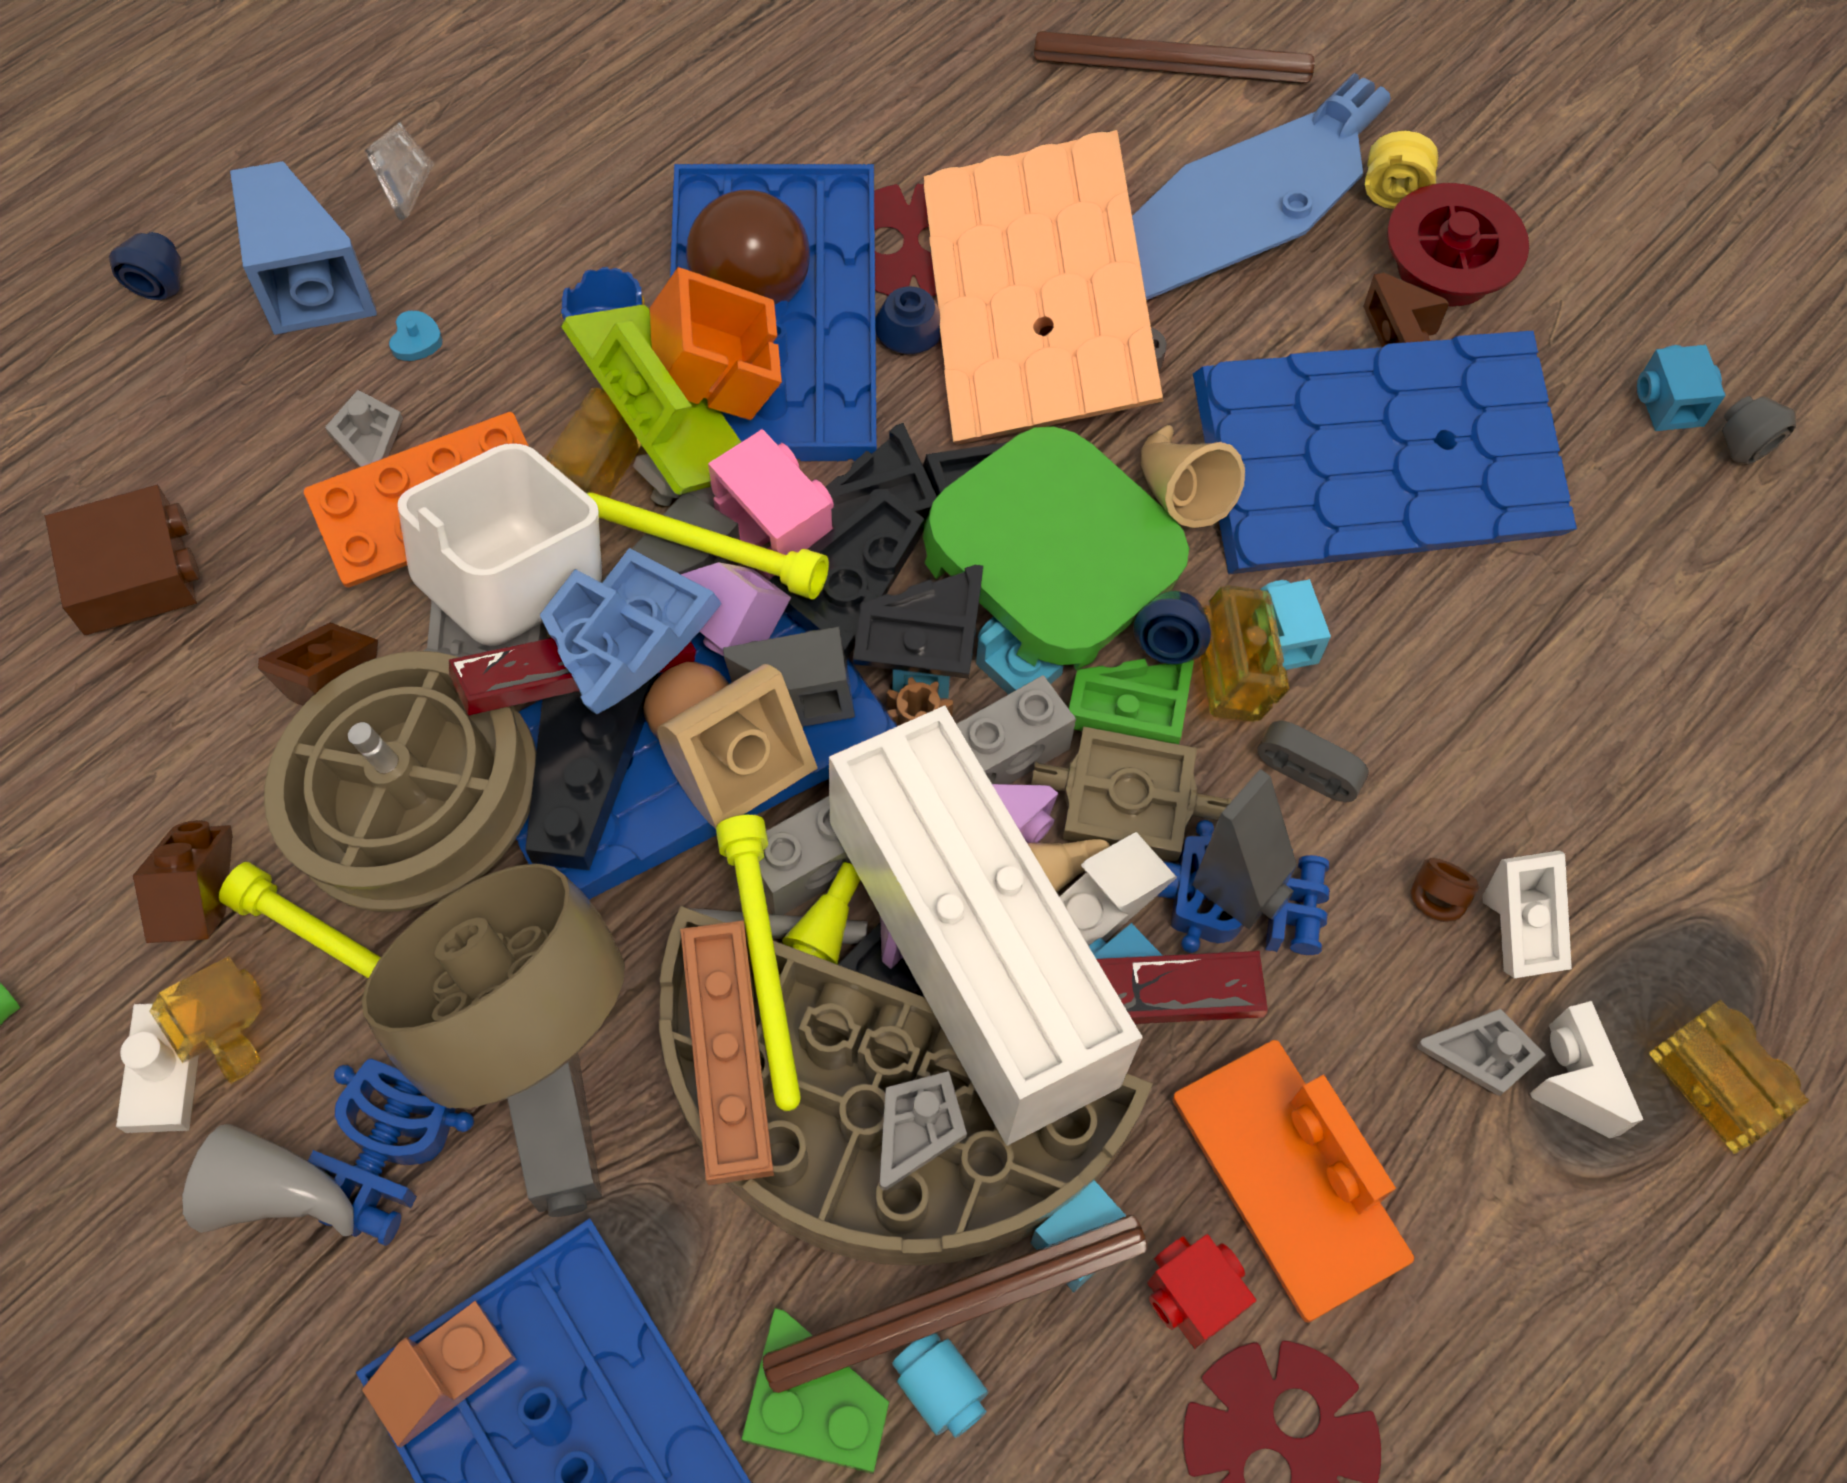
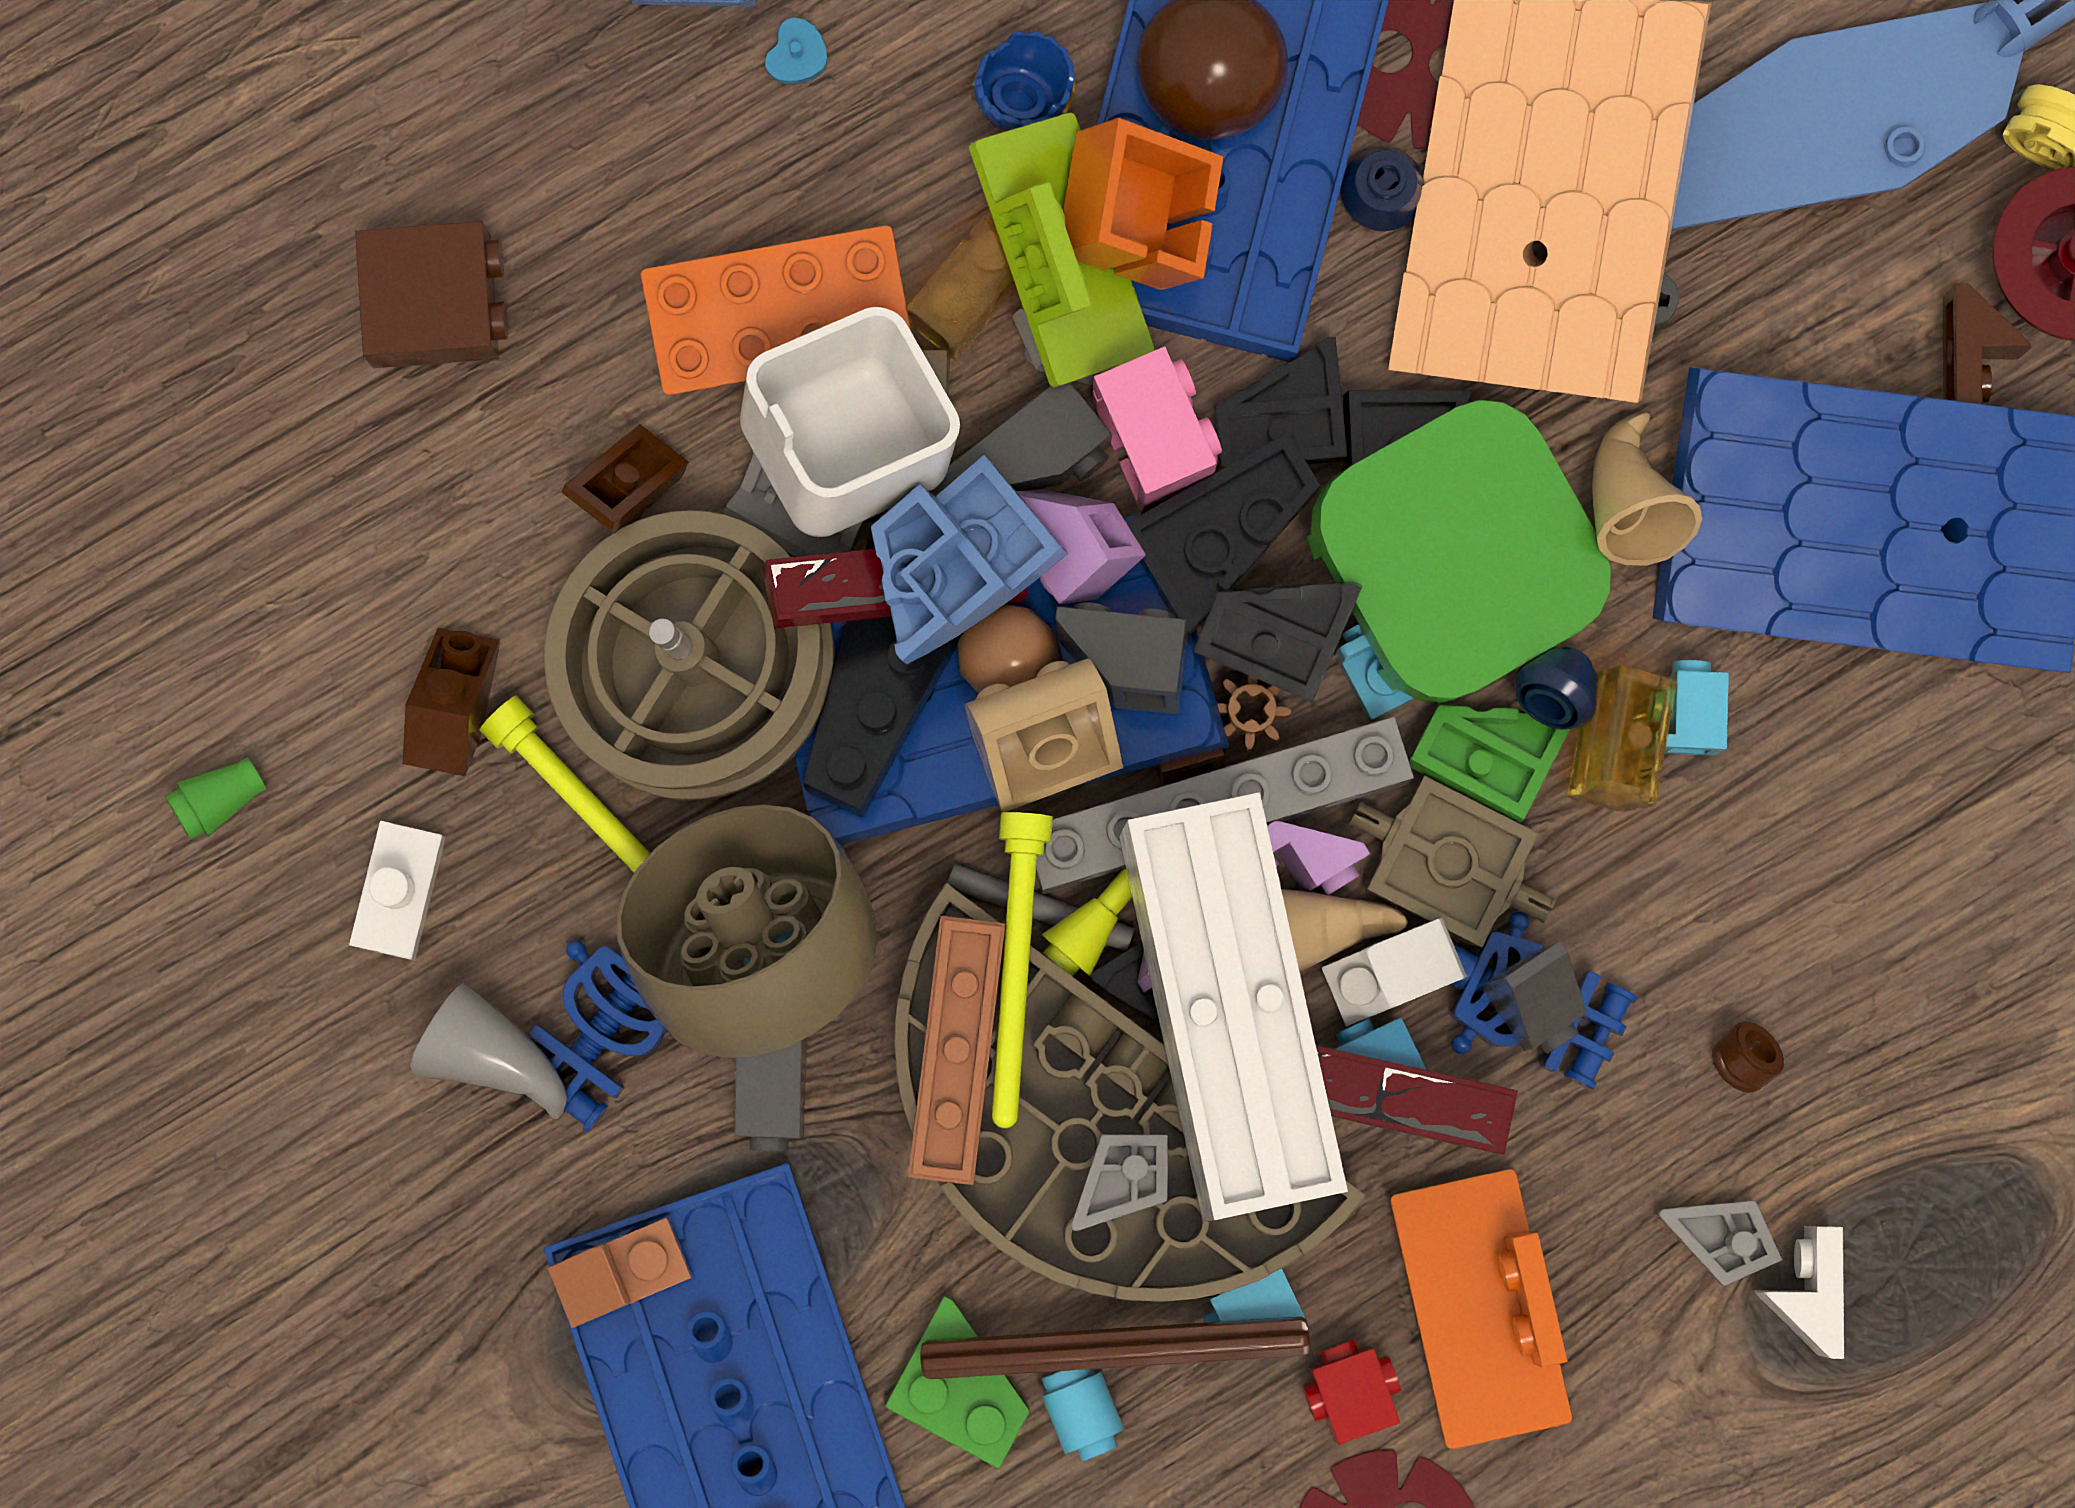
camera: 15 degrees right, 20 degrees up
(210, 1013) = (455, 860): clear yellow brick -> none
(365, 428) = (718, 181): light grey piece -> none
(802, 570) = (1162, 529): neon yellow piece -> none
(1313, 761) = (1660, 879): dark grey beam -> none
(1533, 913) = (1823, 1118): white slope -> none
(1730, 1076) = (1960, 1333): clear yellow brick -> none

